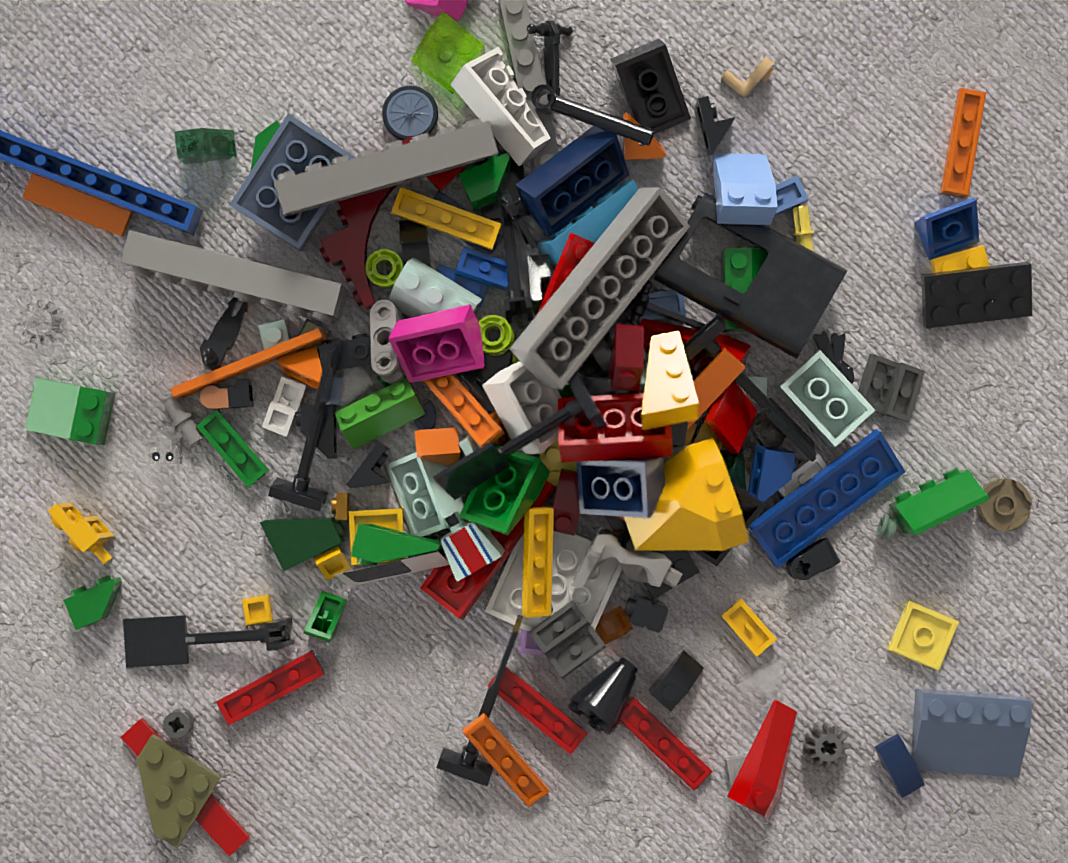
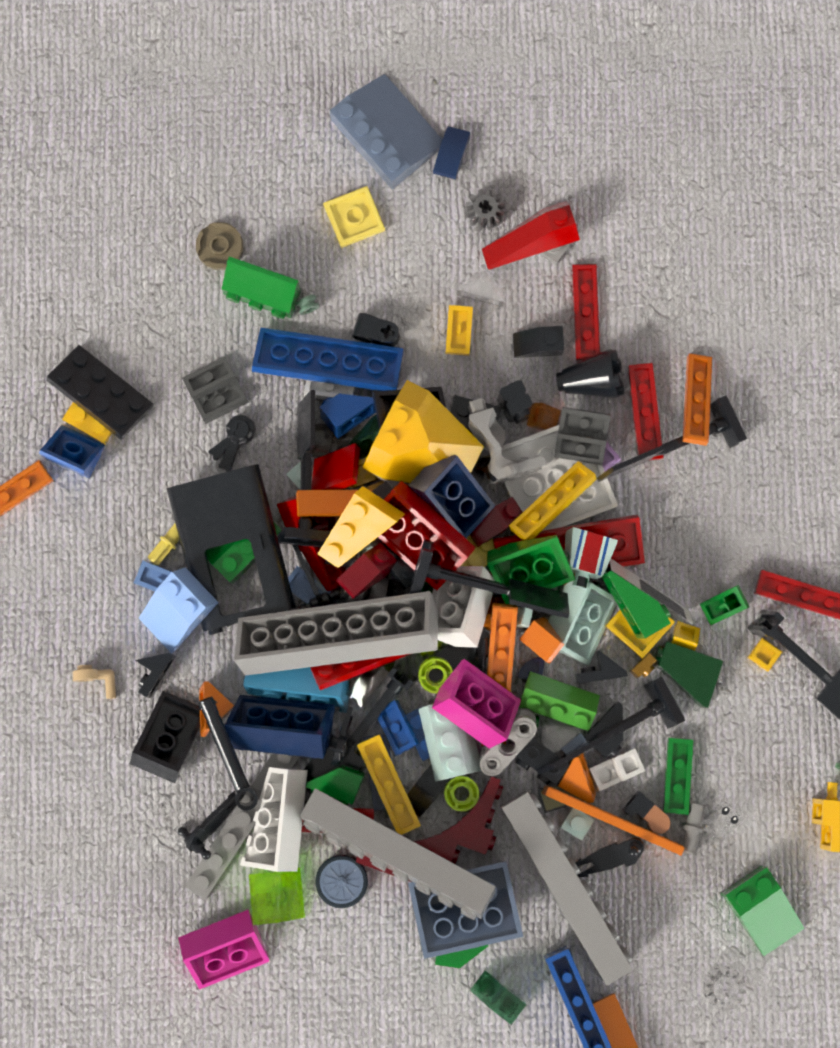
camera: 140 degrees left, 5 degrees down
(825, 399) = (264, 422): light aqua slope -> none

